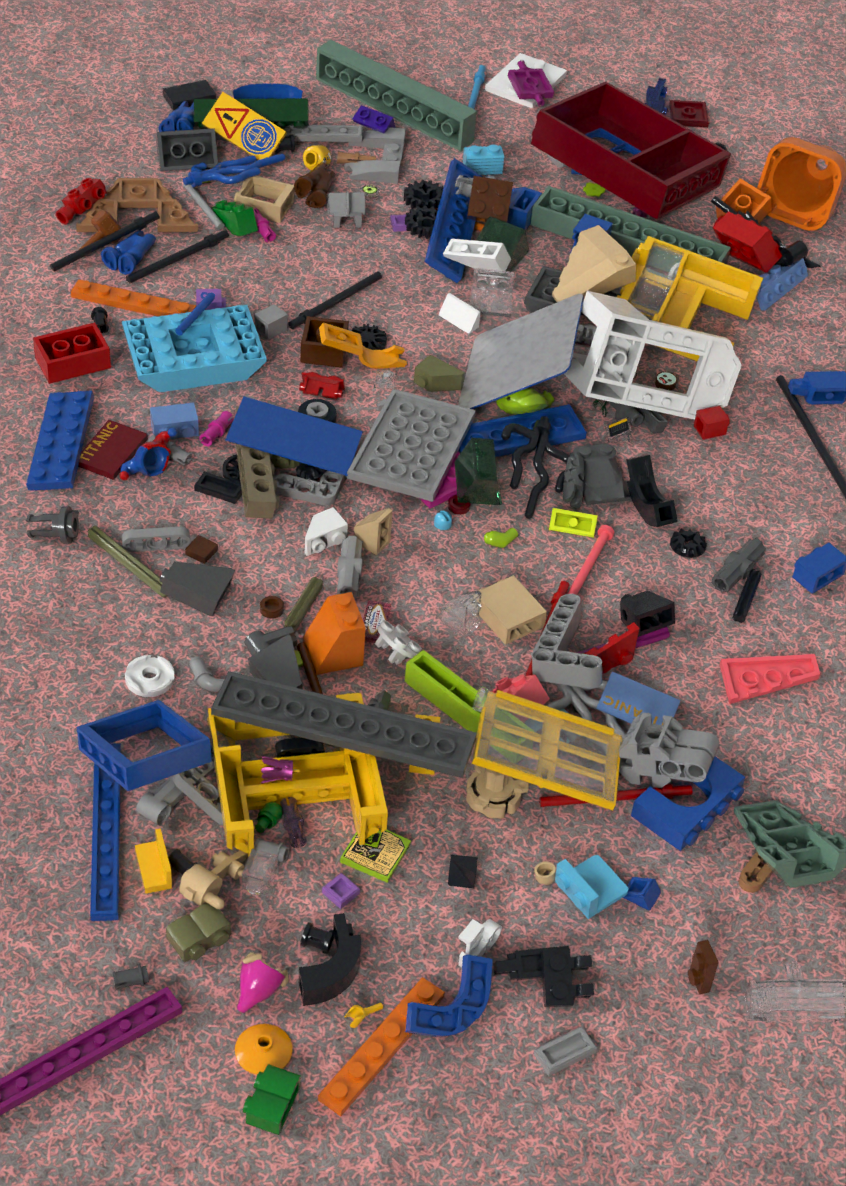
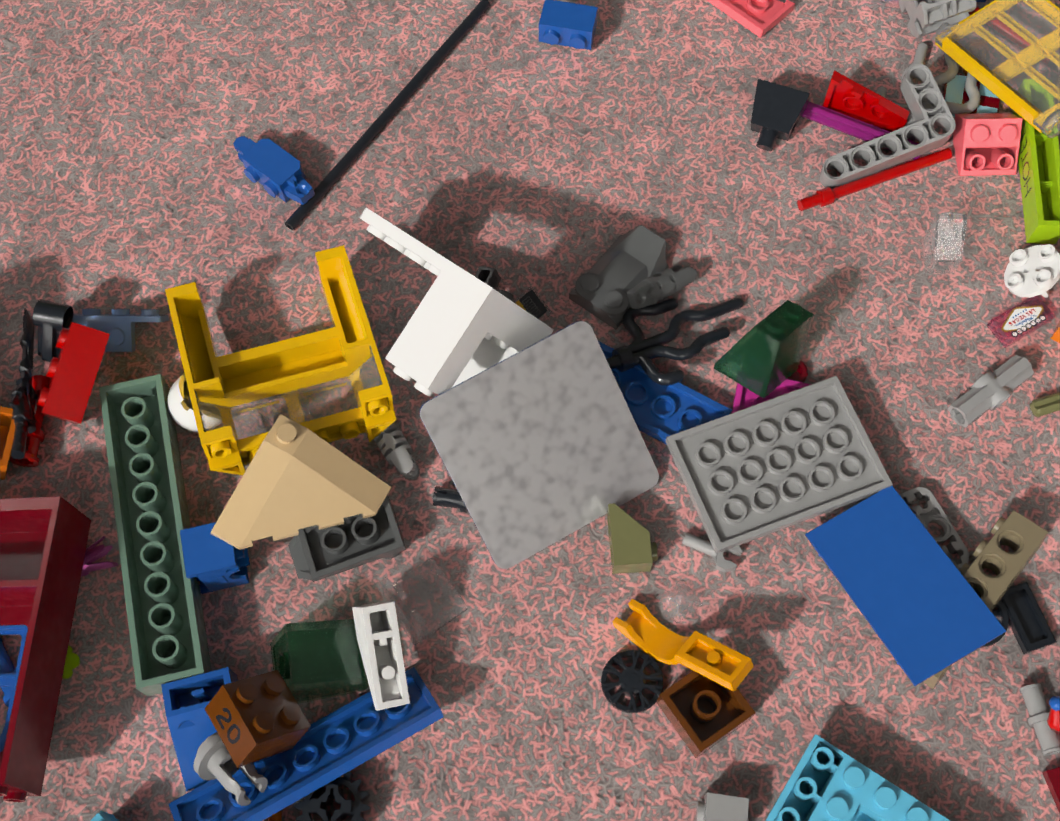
camera: 125 degrees left, 20 degrees up
(179, 416) = (1002, 756): medium blue brick -> none
(216, 428) = (955, 702): dark pink pin -> none
(313, 382) = (758, 643): red hinge -> none
(320, 409) = (812, 623): wheel -> none
(325, 531) = (974, 451): white slope -> none
(334, 300) = (663, 788): black bar -> none
(375, 530) = (932, 399): tan slope -> none
(441, 522) = (825, 366): medium azure hinge -> none
(460, 313) = (489, 611): white slope -> none
(500, 539) = (799, 296): lime arm -> none
(511, 610) = (887, 220): tan brick -> none
(573, 522) = (707, 258): neon yellow slope -> none
(605, 533) = (698, 218): coral bar -> none
(629, 699) = (877, 55): medium blue tile -> none
(645, 495) = (618, 204): black arch -> none
(666, 381) = (396, 321): tile -> none
(690, 549) = (624, 156): black gear -> none
(711, 422) = (436, 231): red brick -> none
(738, 565) = (626, 89): dark grey piece -> none
(747, 595) = (654, 66): black axle -> none

